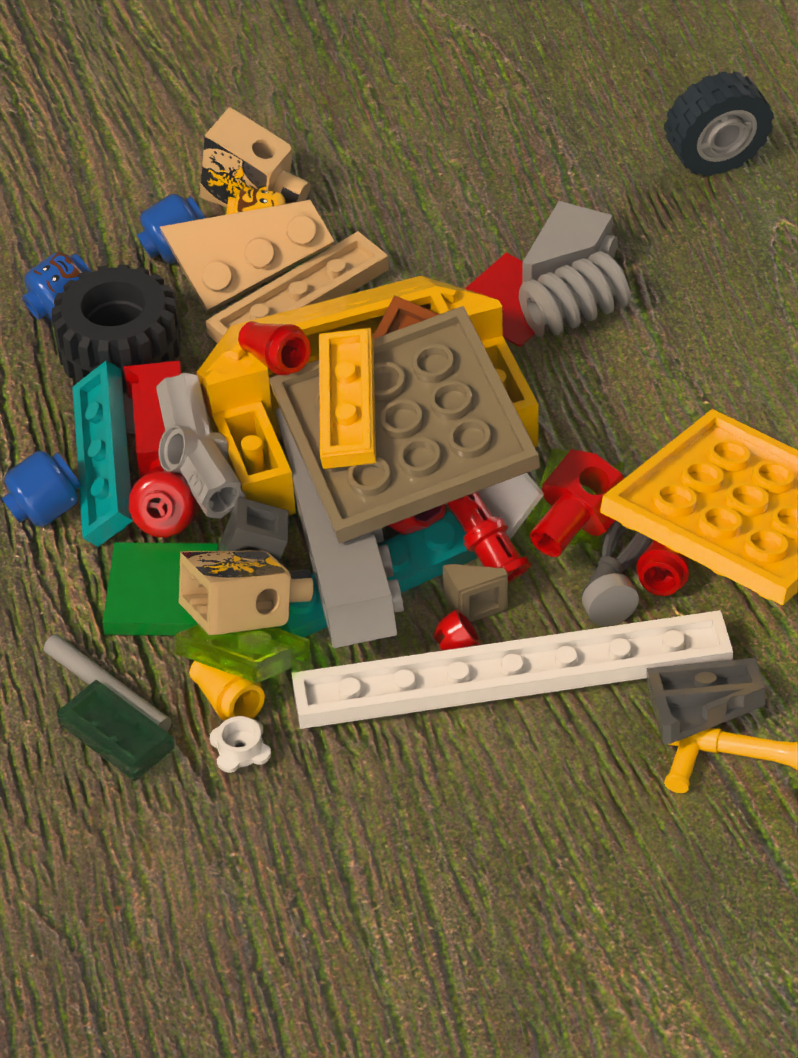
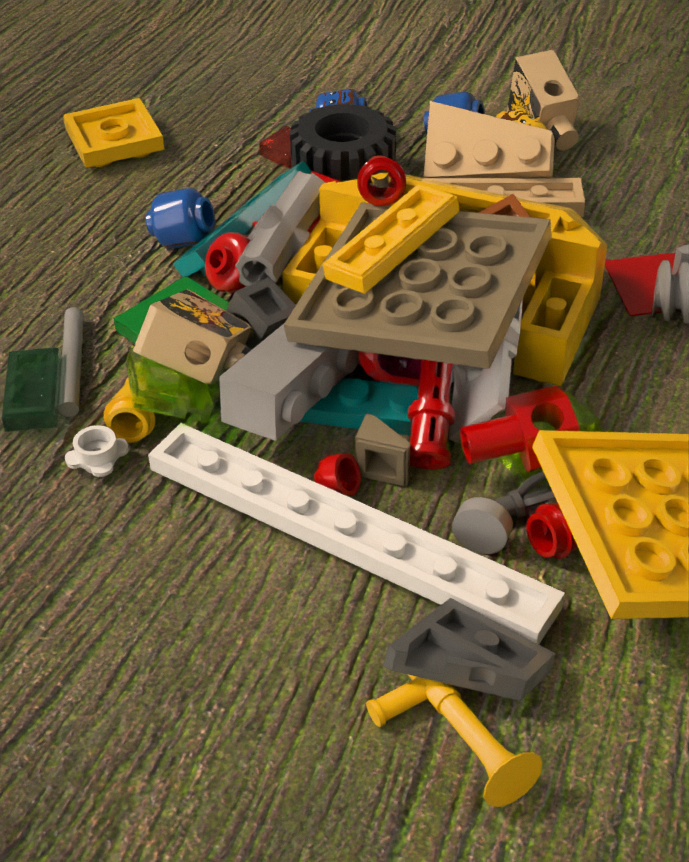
camera: 40 degrees right, 5 degrees down
(32, 350) = (277, 147): none -> clear red tile

